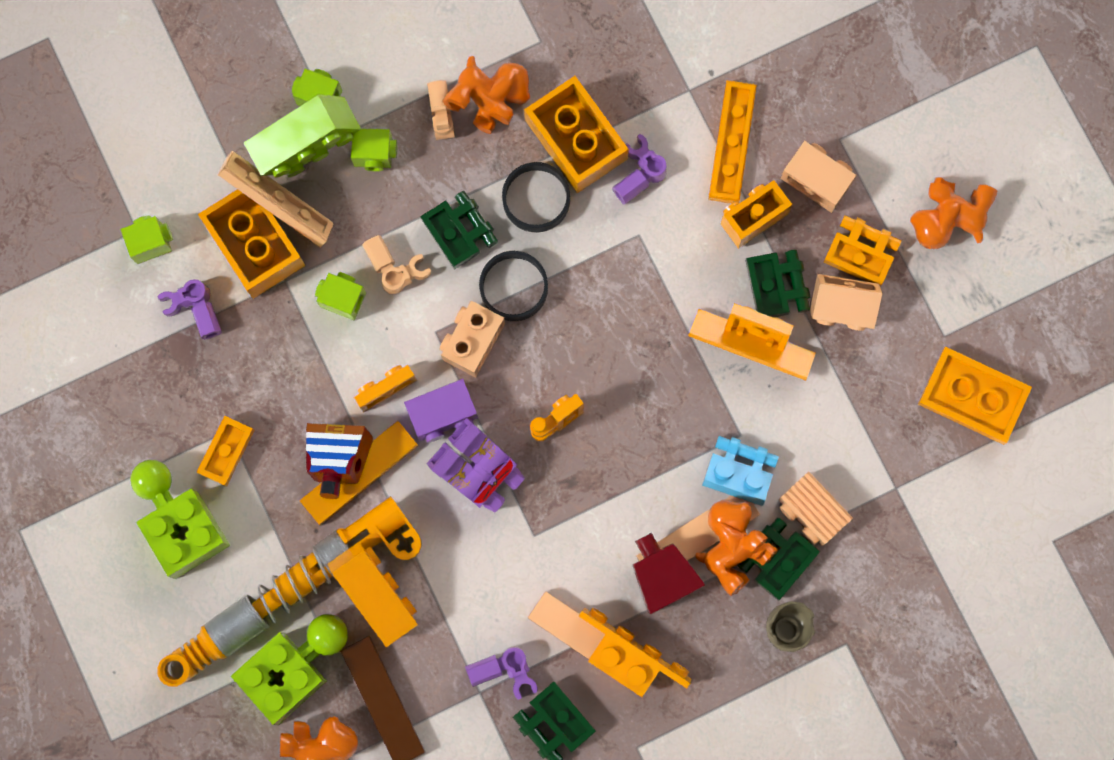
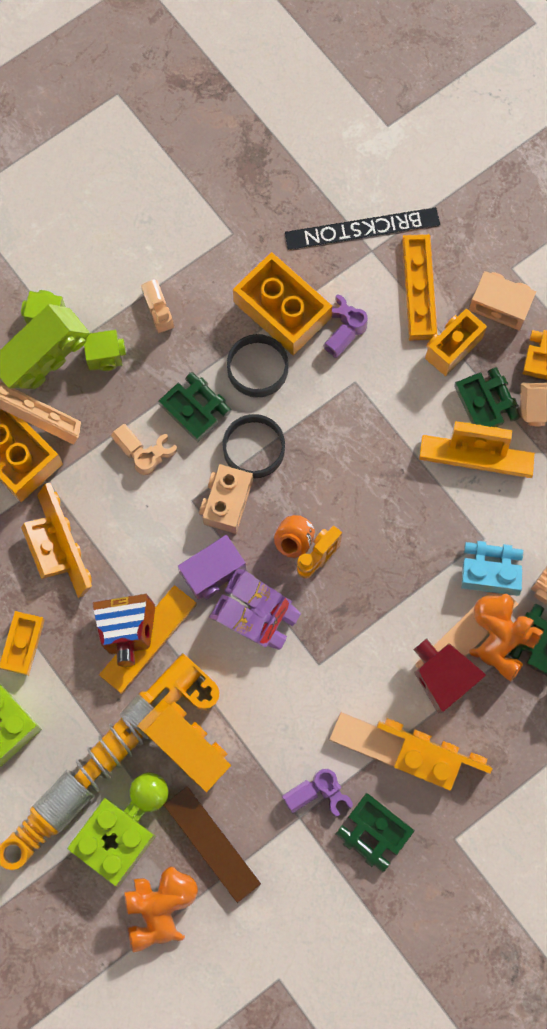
camera: 15 degrees left, 5 degrees down
(278, 353) = (53, 543): none -> light orange bracket
(340, 295) = (100, 483): lime brick -> none
(395, 381) = (164, 550): light orange plate -> none
(489, 94) = (199, 283): orange animal -> none
(535, 394) = (294, 536): none -> orange head
(684, 62) = (362, 228): none -> black sticker

